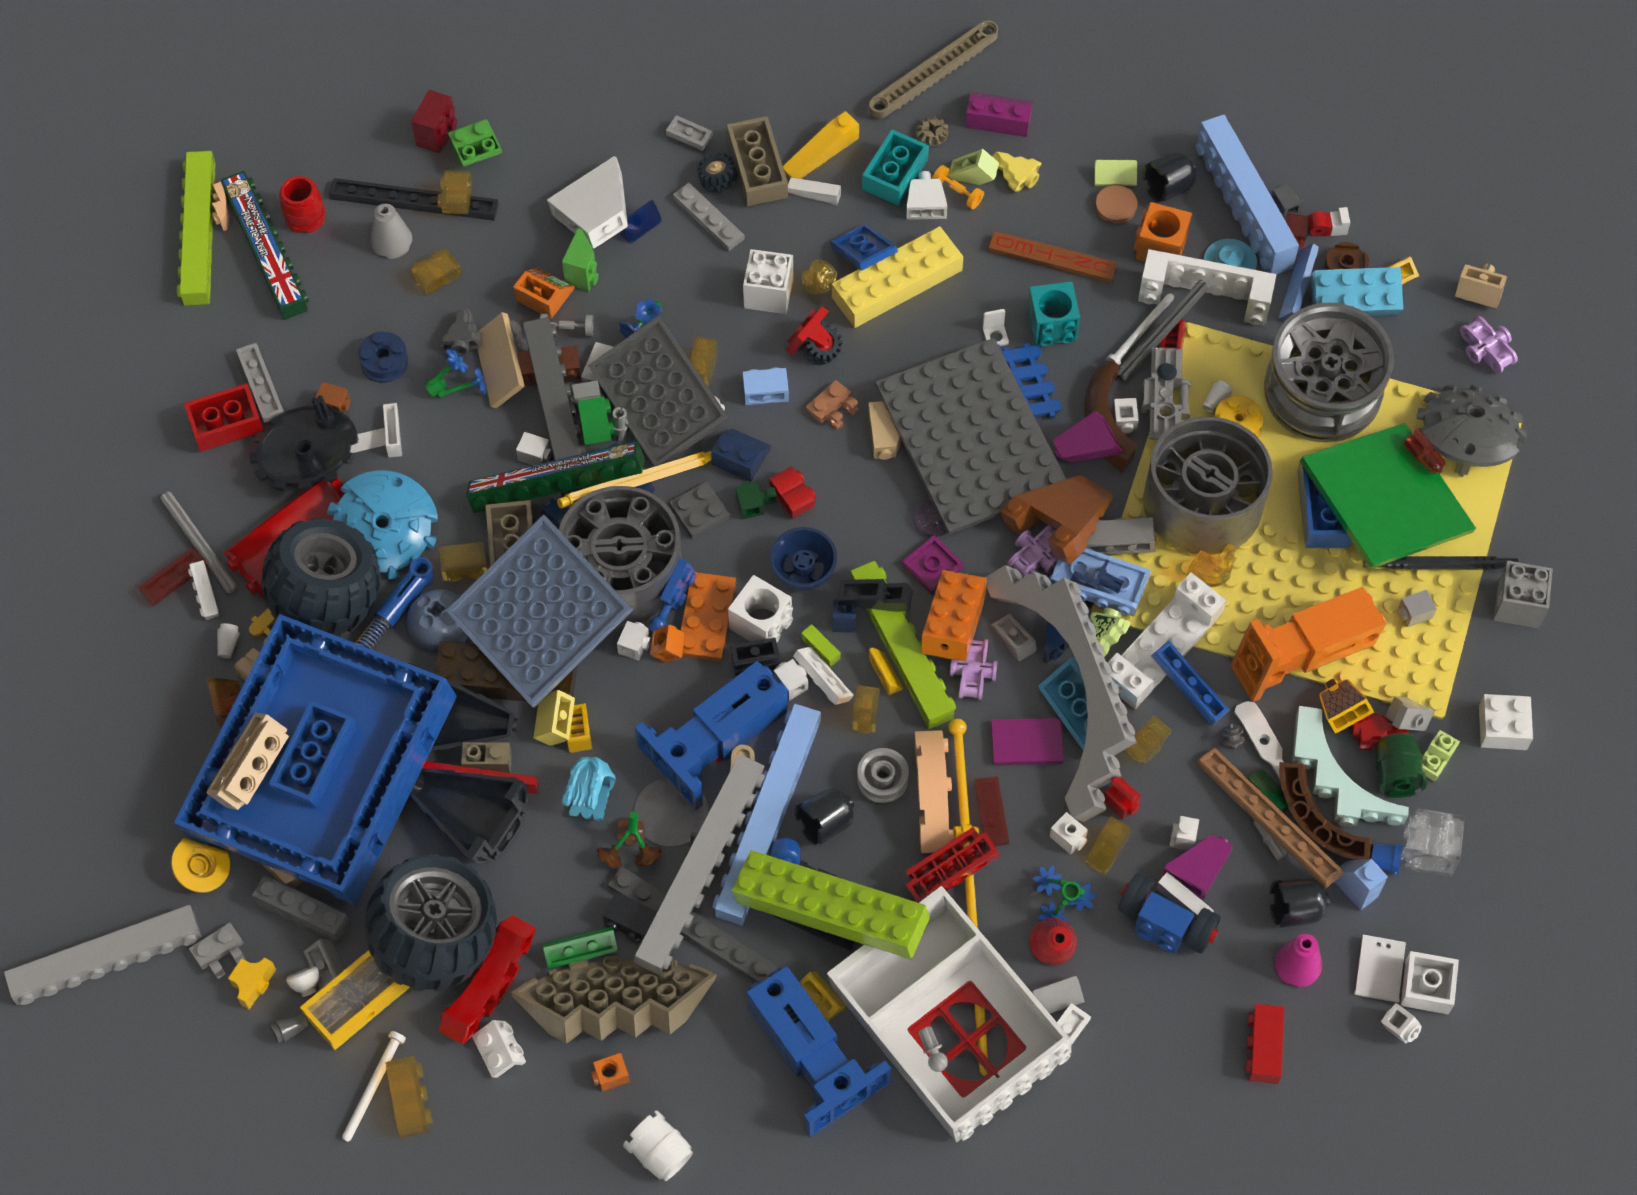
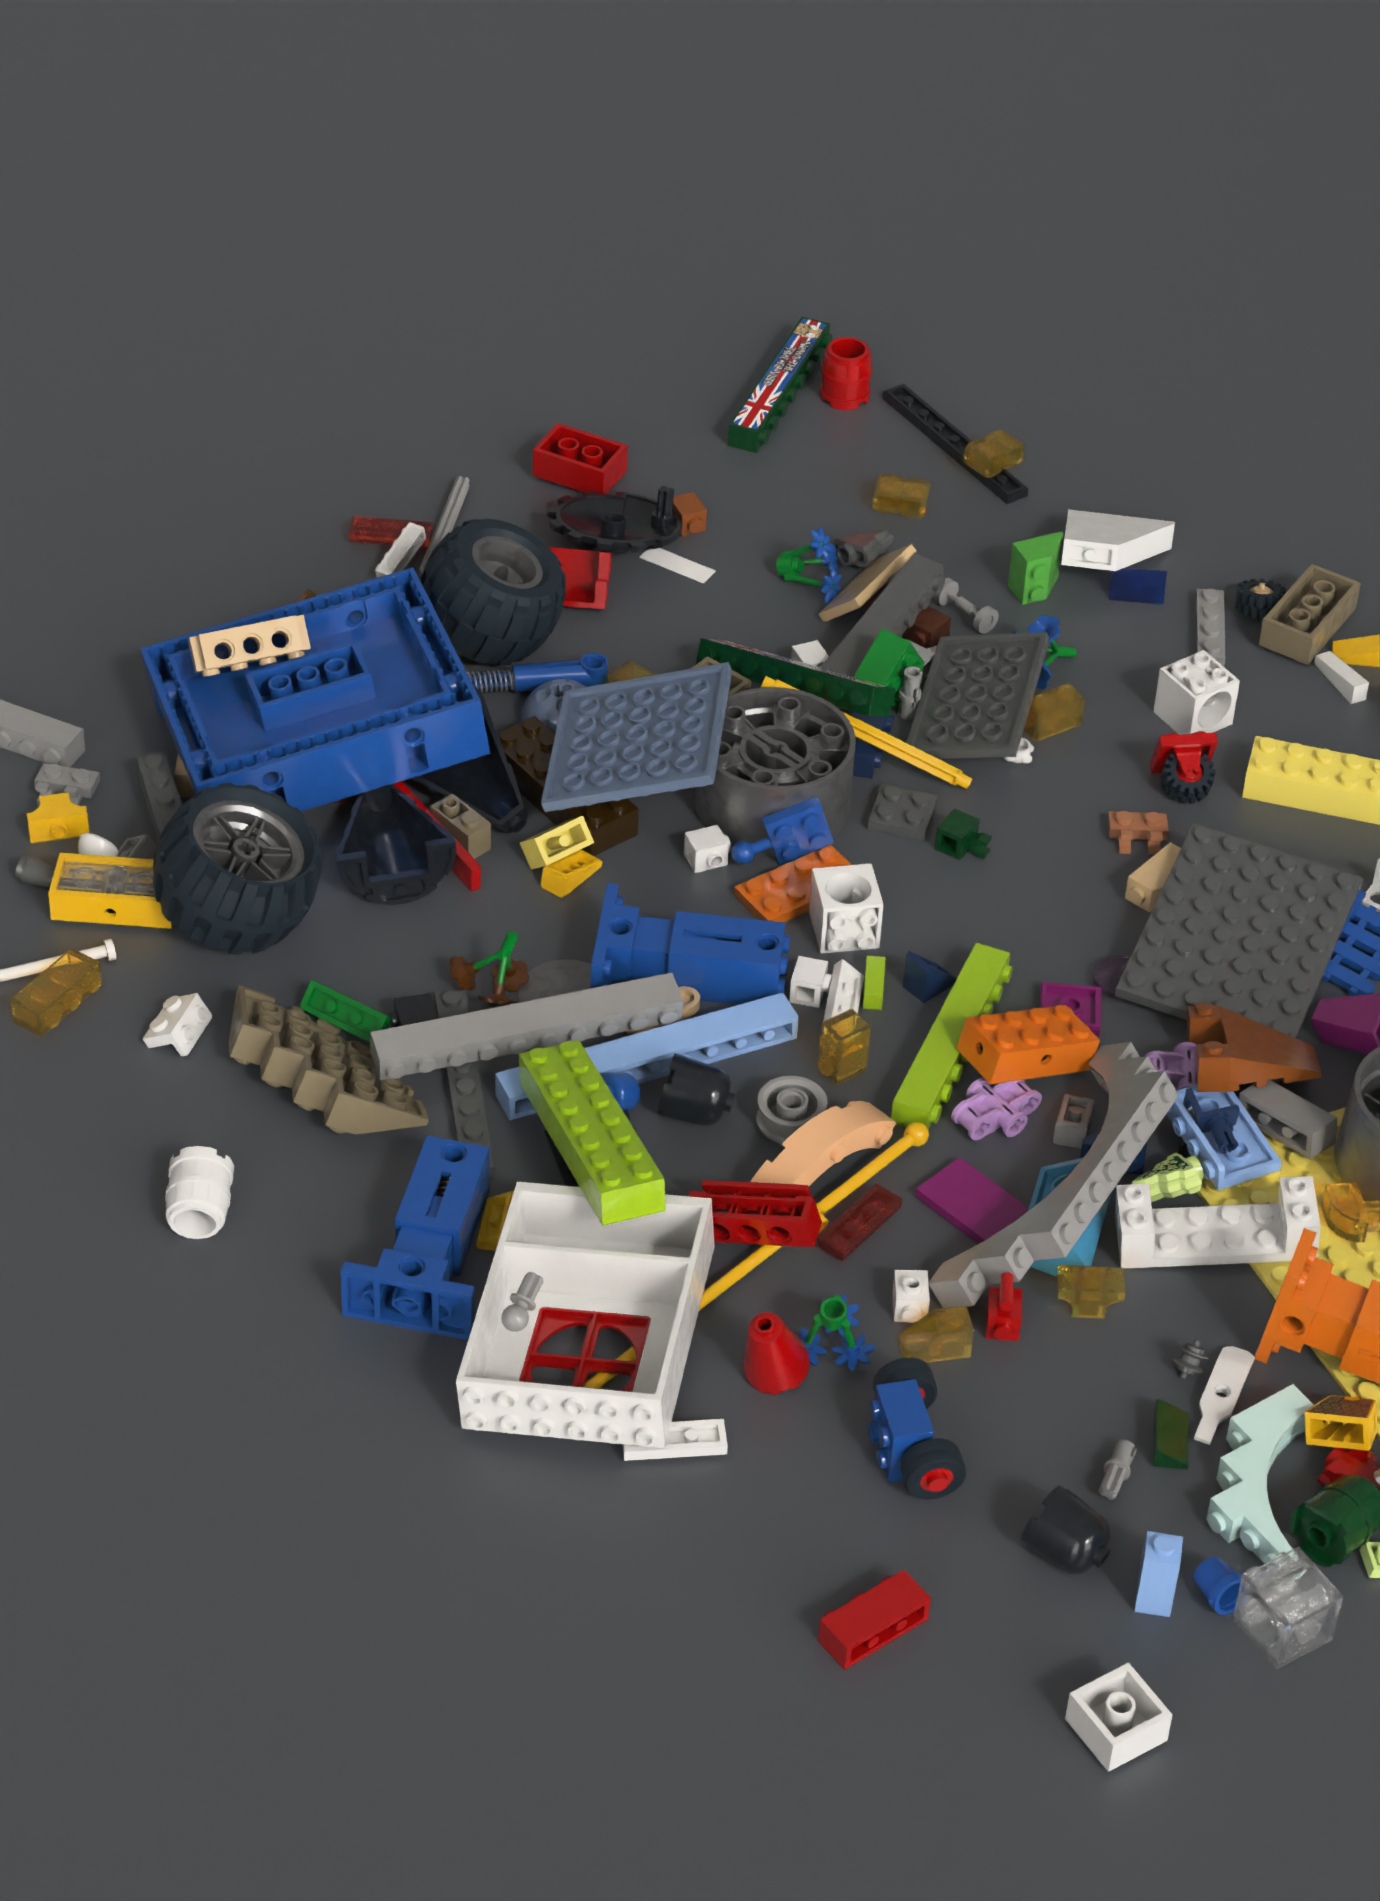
camera: 45 degrees right, 20 degrees down
(197, 228) = (739, 339): lime brick -> none
(199, 866) = (130, 715): yellow hat -> none
(221, 214) = (776, 337): light nougat slope -> none
(260, 382) = (646, 463): light grey plate -> none
(386, 368) = (772, 517): dark blue wheel -> none
(389, 233) = (897, 439): light grey cone -> none
(392, 430) = (708, 570): white piece -> none
(400, 503) = (635, 614): dark azure piece -> none
(434, 121) = (1041, 396): dark red brick -> none
(474, 143) = (1059, 435): bright green slope -> none
(488, 982) = (218, 975): red brick -> none
(542, 291) = (975, 567): orange slope -> none
(589, 788) = (524, 893): medium azure piece -> none
(613, 1062) = (241, 1116): orange brick -> none
(667, 643) = (732, 870): orange brick -> none
(689, 133) = (1274, 559): light grey plate -> none
(739, 454) = (995, 797): dark blue slope -> none
(748, 653) = (806, 935): black brick -> none
(765, 386) = (1089, 770): light blue brick -> none
(792, 492) = (1006, 858): red brick -> none
(806, 549) = (941, 900): dark blue piece -> none
(819, 277) = (1257, 723): clear yellow hair -> none
(863, 246) = (1328, 736): blue tile -> none
(876, 594) = (972, 970): black slope -> none
(885, 671) = (907, 1043): yellow slope -> none
(1060, 995) = (715, 1401): light grey slope -> none
(1180, 894) = (956, 1430): white piece -> none
(1184, 833) = (1028, 1381): white brick -> none
(1190, 683) = (1199, 1277): blue brick -> none
(1200, 865) = (1010, 1428): magenta slope -> none
(1270, 818) = (1134, 1447): medium nougat tile -> none
(1299, 961) = (1005, 1580): dark pink cone -> none
(1312, 820) = (1186, 1479): reddish brown brick -> none
(1380, 968) = (1081, 1664): white container -> none
(1401, 1024) = (1038, 1721): white brick -> none

